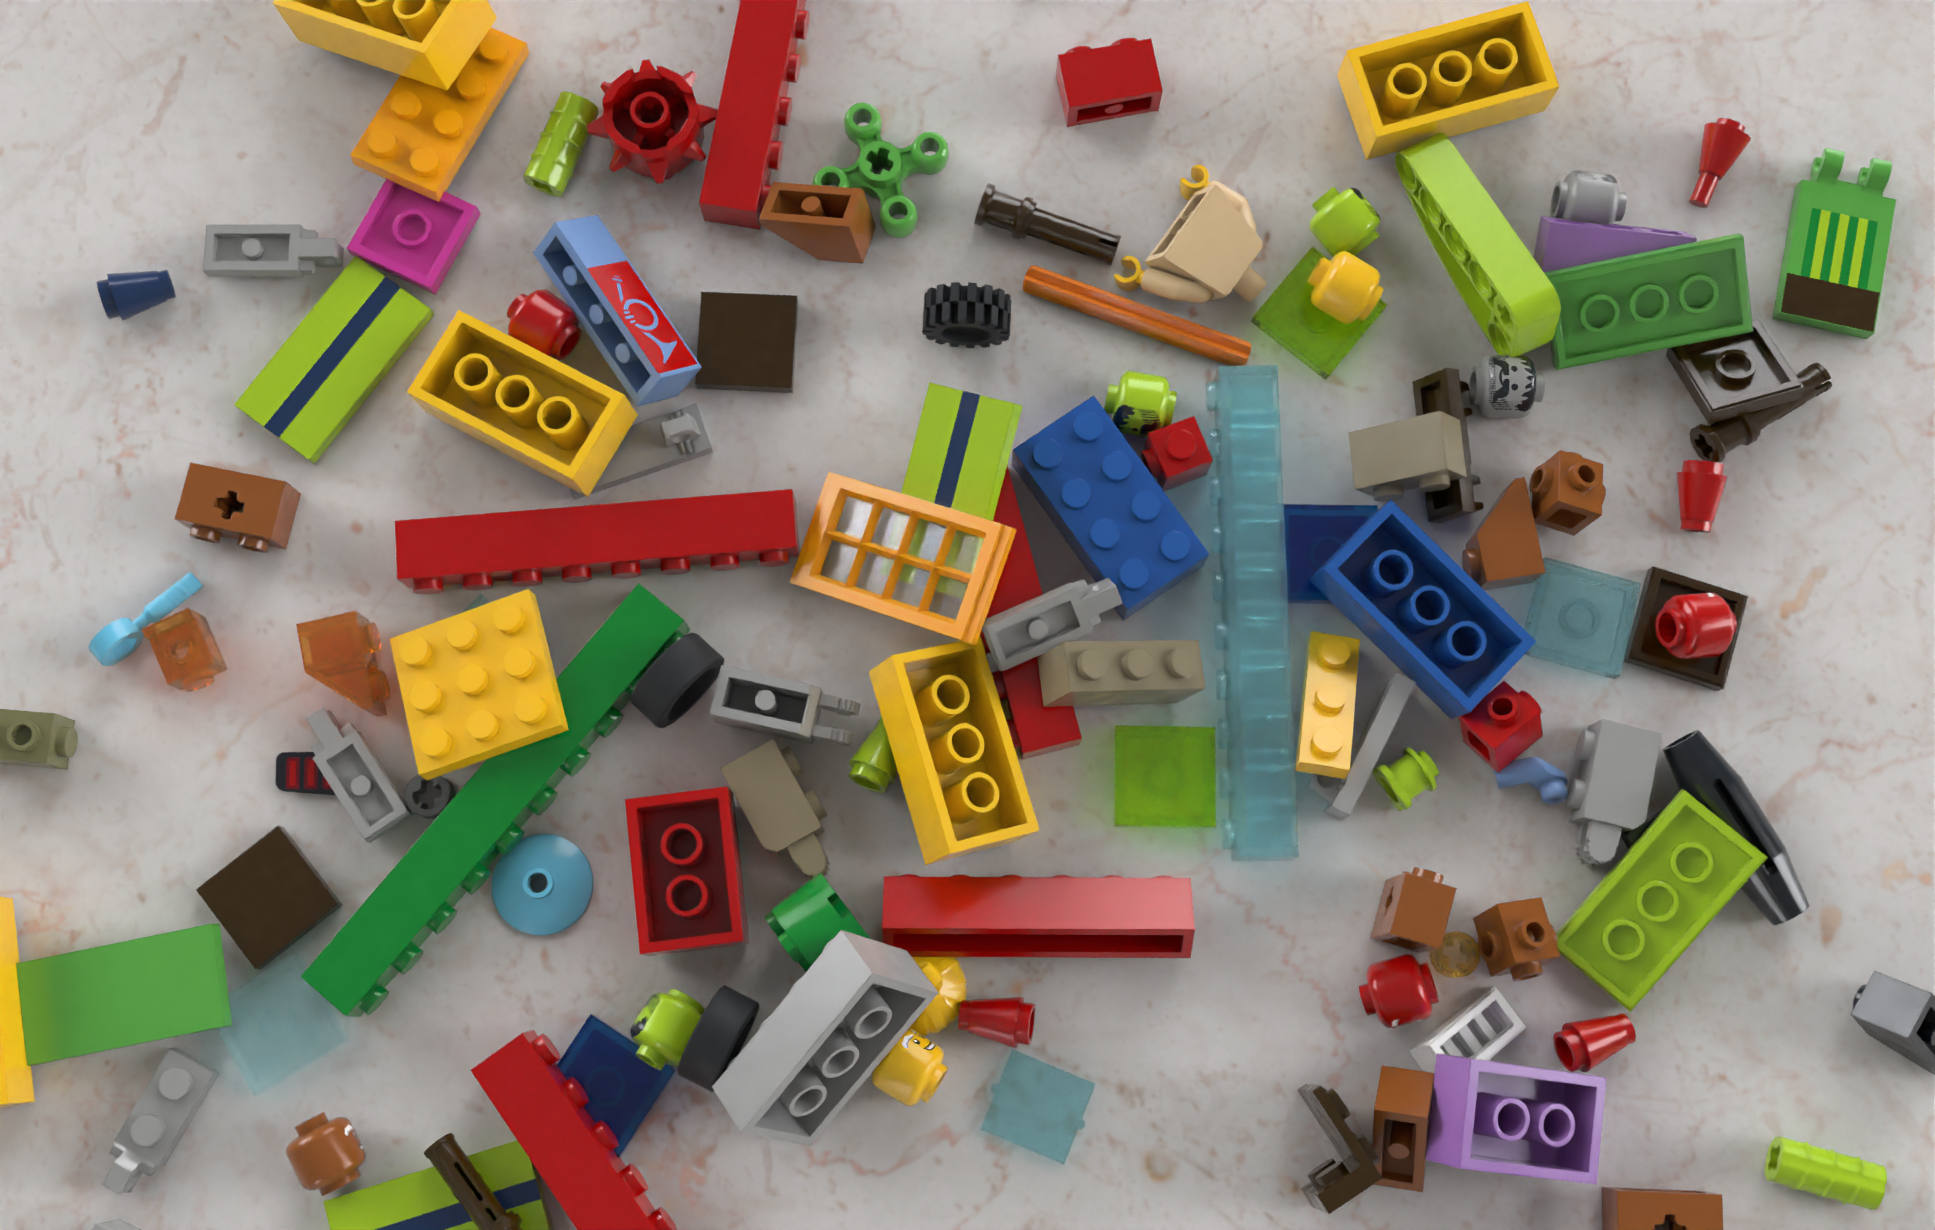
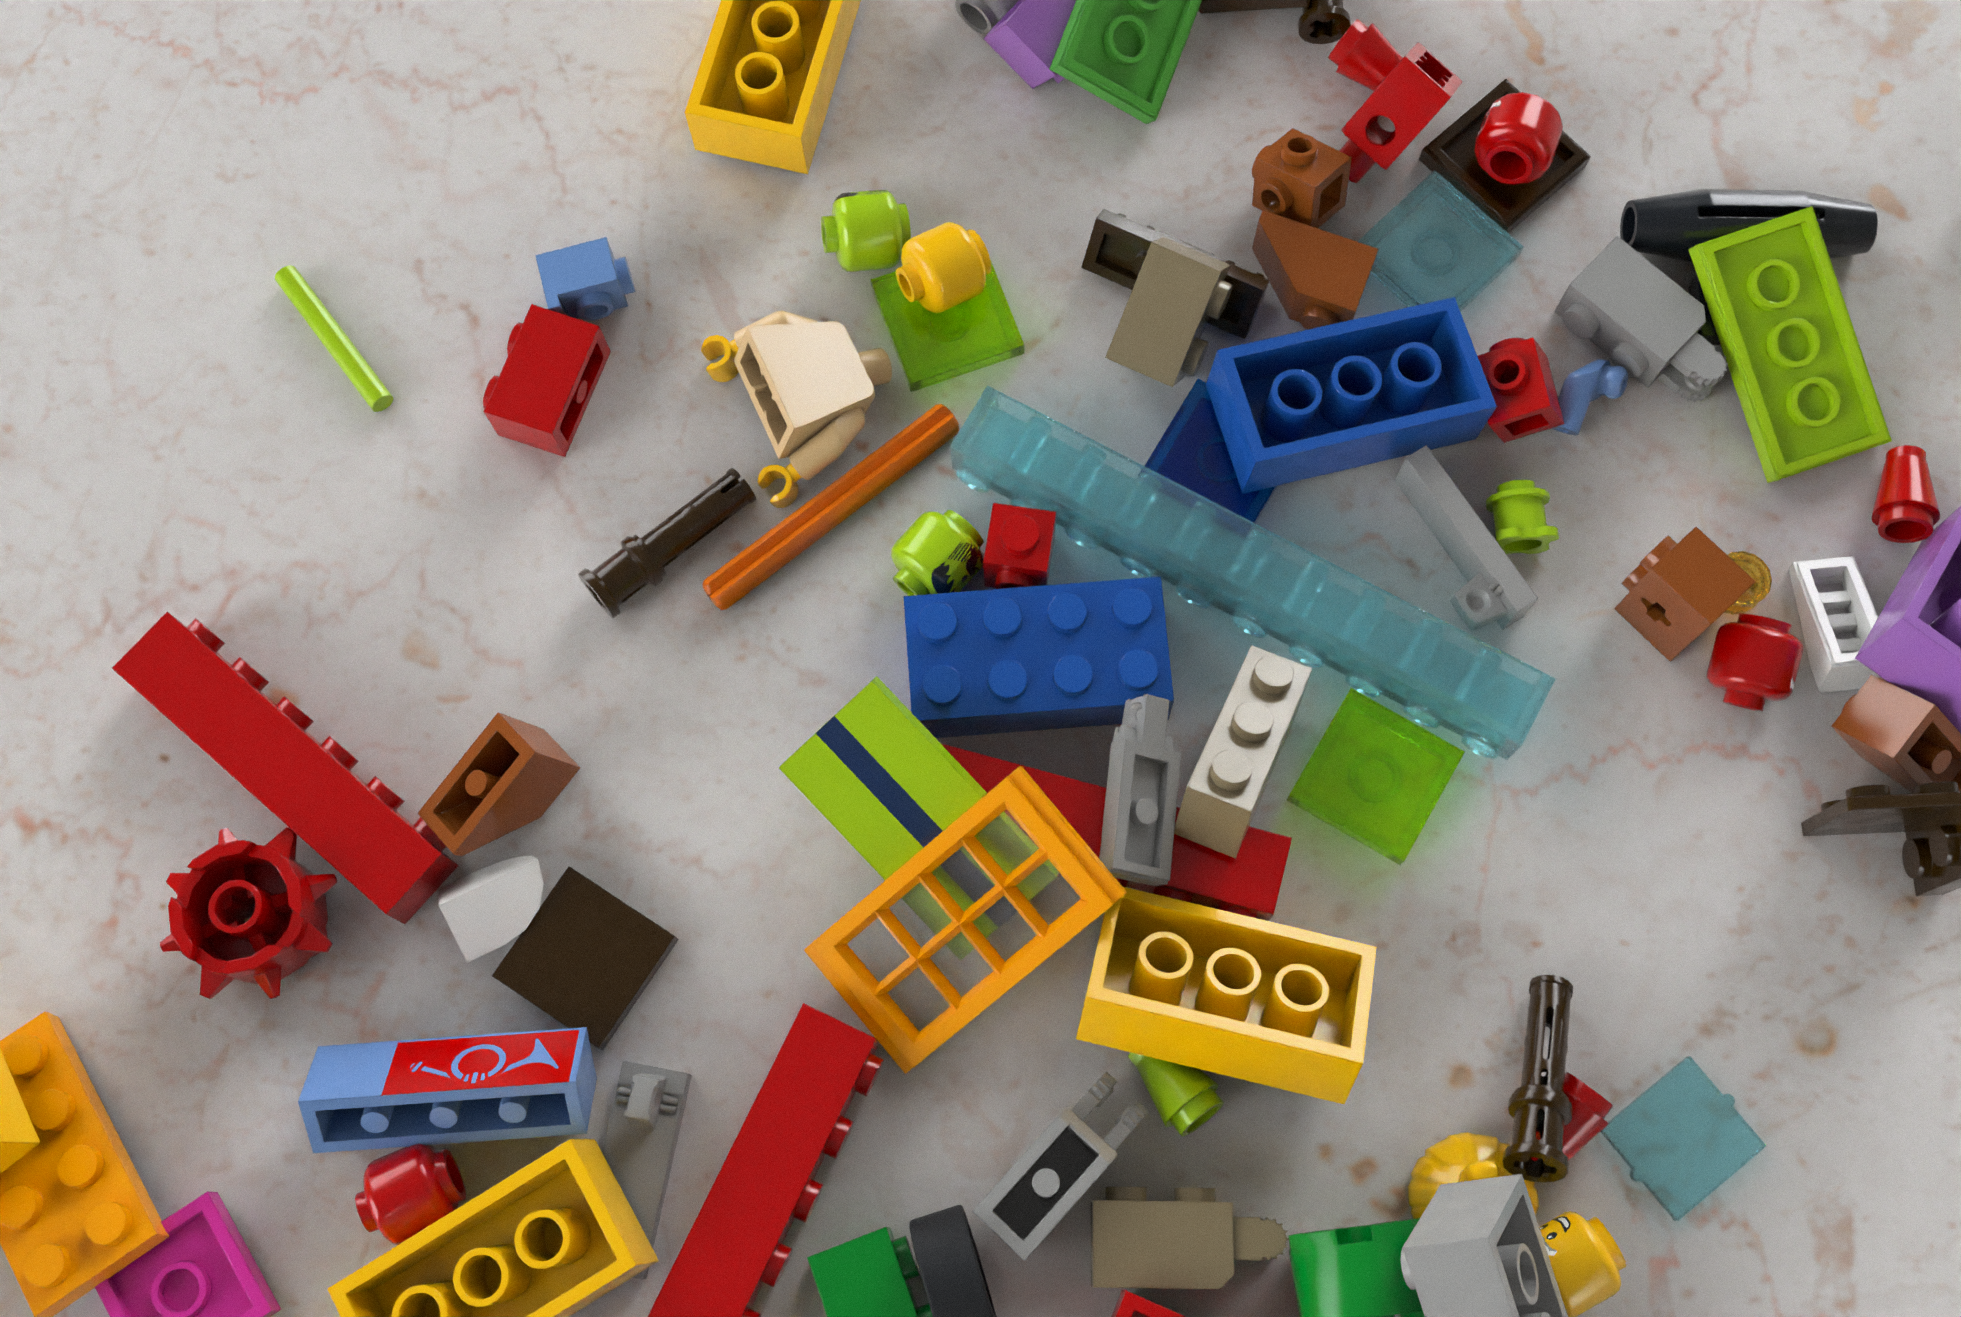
camera: 55 degrees left, 5 degrees down
(560, 144) = (199, 1041): lime axle -> none
(744, 263) = (492, 904): none -> white brick
(878, 153) = (486, 658): bright green gear -> none
(967, 315) = (719, 683): black tyre -> none
(998, 991) = (1541, 1100): none -> dark brown pin
(1039, 916) = (1467, 1012): red brick -> none
(1192, 62) = (585, 280): none -> medium blue brick
(1328, 705) = (1397, 553): yellow plate -> none
(1479, 248) = (983, 113): lime beam -> none
(1505, 386) = (1145, 177): light grey head -> none
(1516, 938) = (1762, 507): dark orange brick -> none
(1664, 529) = (1409, 99): none -> red torso

